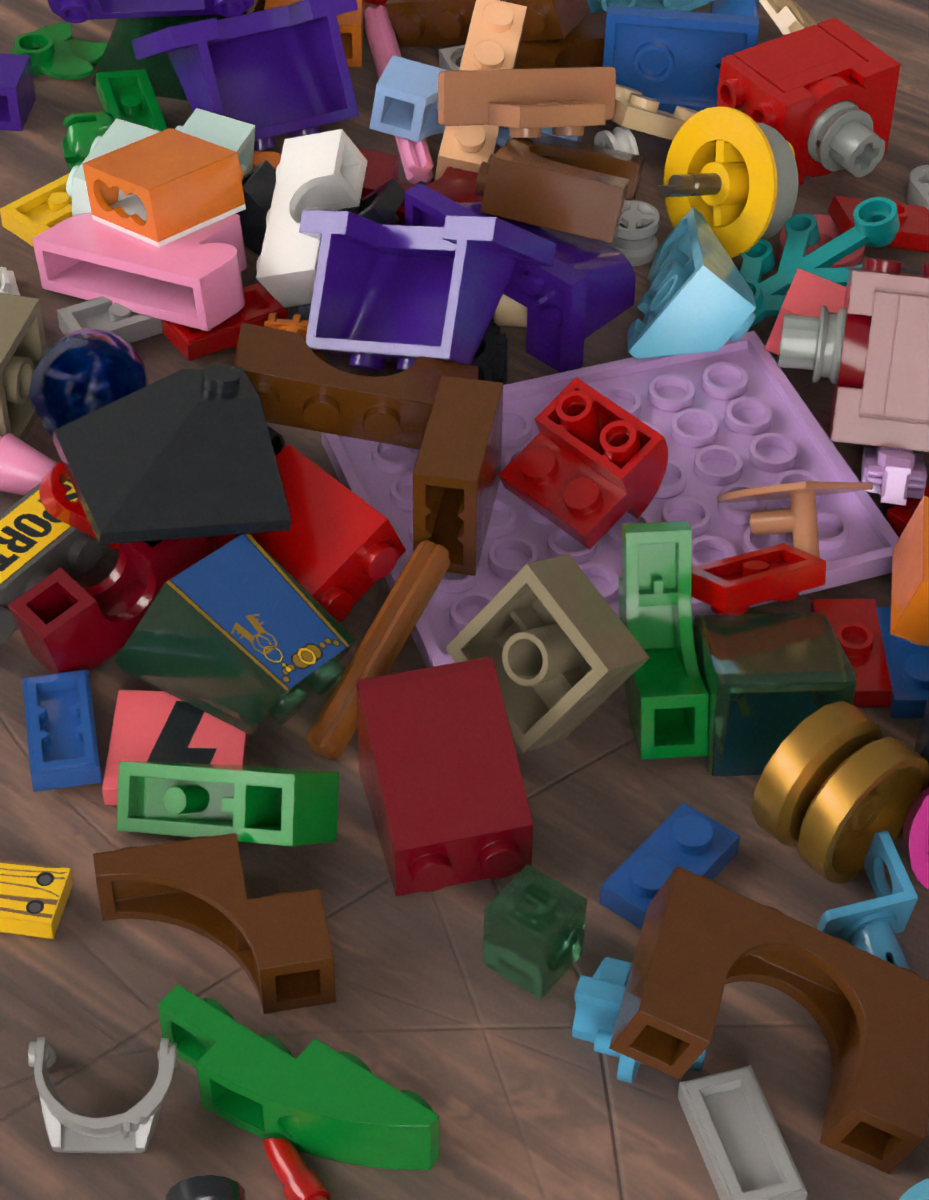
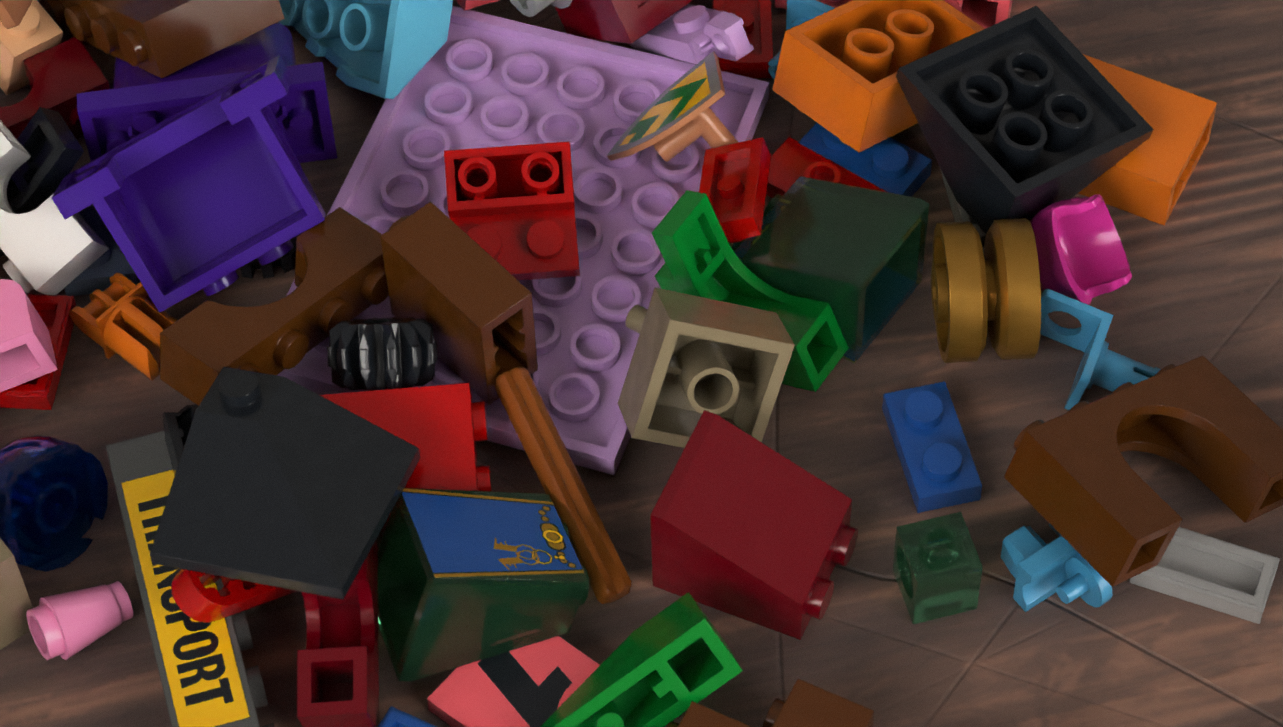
camera: 50 degrees left, 10 degrees up
(370, 463) = (382, 353): none -> black gear

